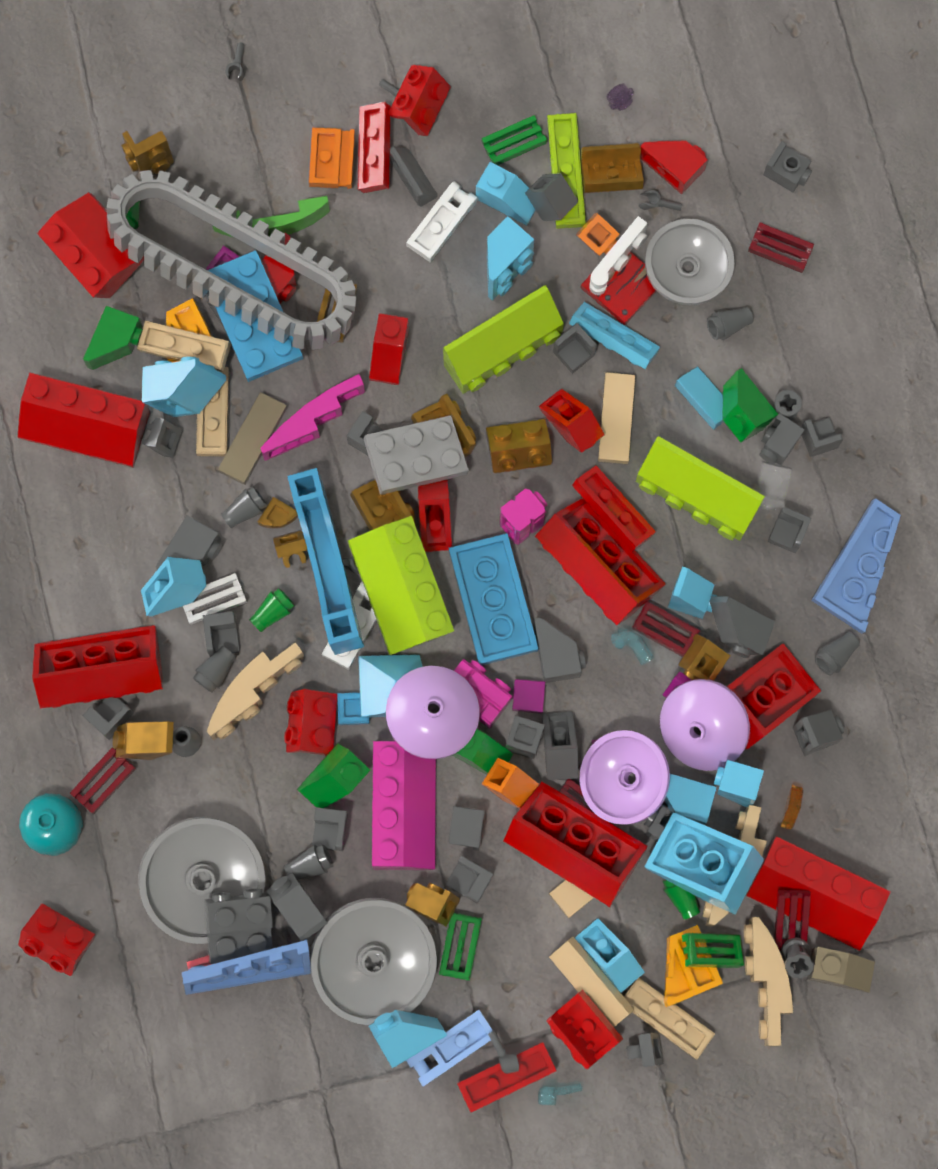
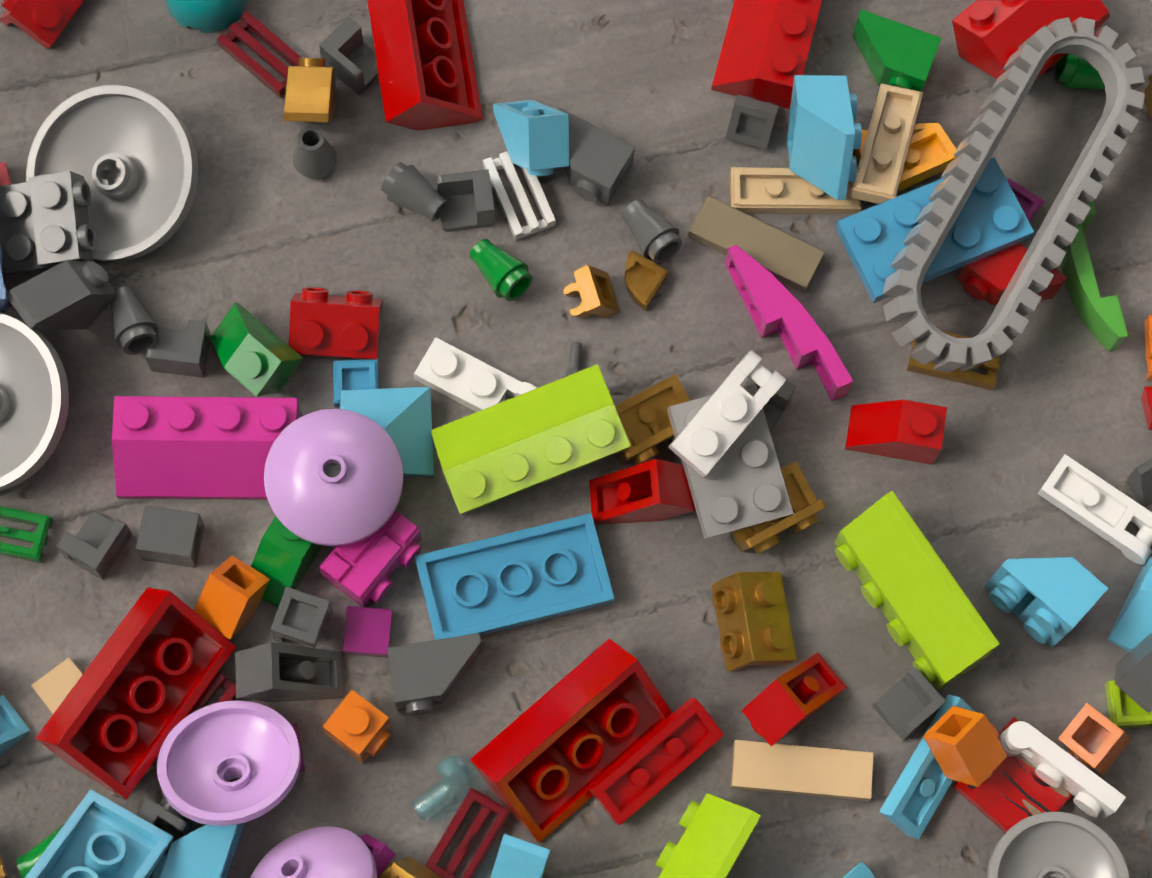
camera: 85 degrees right, 5 degrees down
(241, 696) = (376, 230): tan slope -> none
(326, 561) = (494, 349): dark azure arch -> none
(389, 452) = (725, 415): none -> white plate
(432, 902) = (61, 485): pearl gold brick -> none
(523, 515) = (638, 617): dark pink brick -> none
(596, 697) = (358, 727): none -> orange brick
(605, 312) = (965, 746): none -> orange brick

